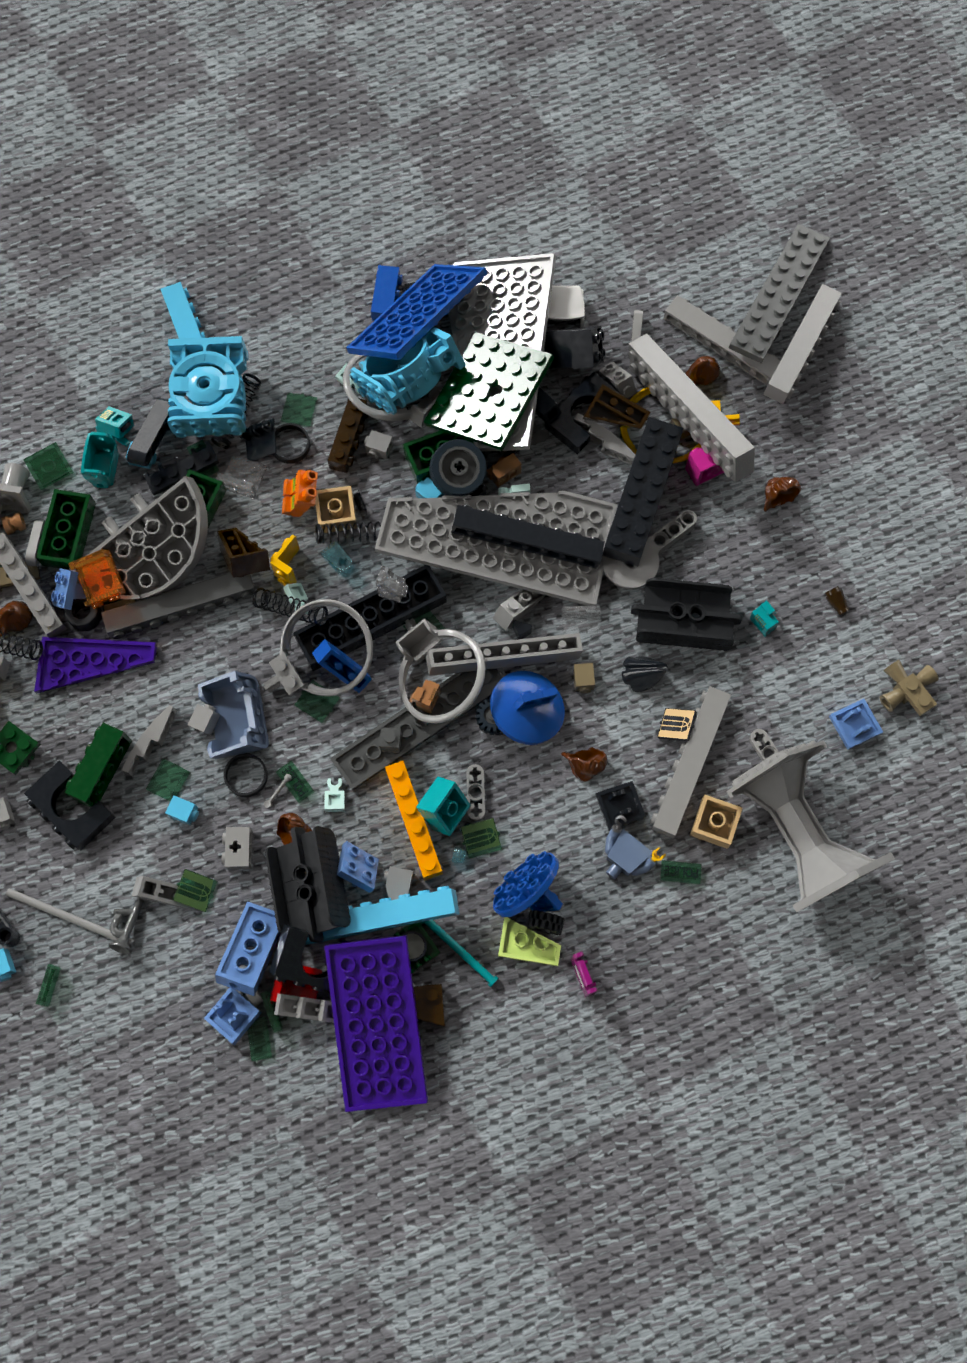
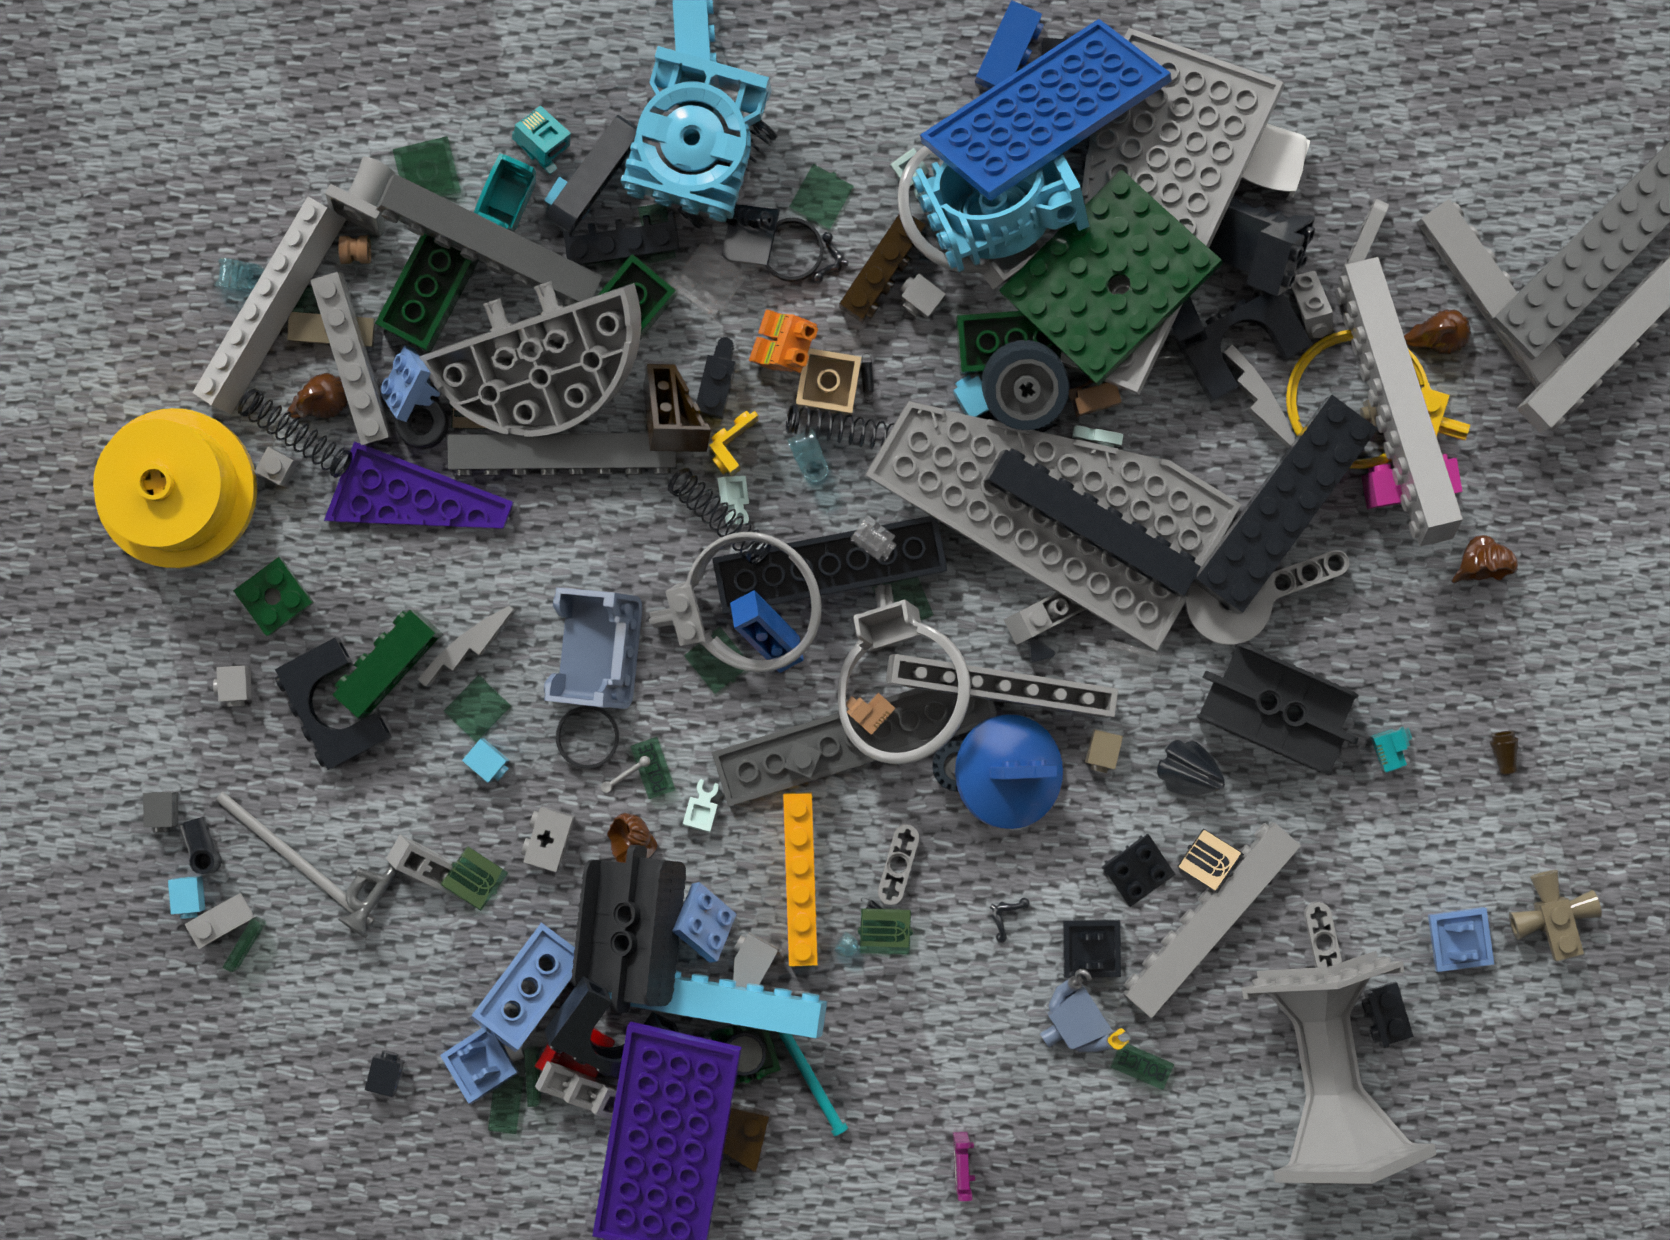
camera: 15 degrees right, 15 degrees up
(26, 975) = (219, 921): none -> light grey slope
(34, 542) = (381, 290): light grey beam -> none
(84, 484) = (485, 241): none -> dark grey brick
(98, 578) = (458, 390): clear orange panel -> none
(168, 1043) = (384, 1073): none -> black brick
(204, 719) = (551, 639): light grey brick -> none
(265, 528) = (717, 380): none -> black hinge
(318, 438) = (819, 276): none -> black piece
(443, 806) = (847, 876): teal brick -> none
(526, 945) = (900, 1096): yellowish green wing -> none
(528, 887) = (926, 1026): blue bracket -> none
(545, 922) = (934, 1078): black tyre -> none
(552, 799) = (997, 911): none -> black piece
(586, 763) = (1066, 874): reddish brown hair -> none
(616, 410) = (1287, 364): dark brown wedge -> none
(633, 746) = (1138, 870): none -> black hinge
(716, 821) = (1214, 1016): tan brick -> none
(828, 787) = (1387, 1014): none -> black bracket

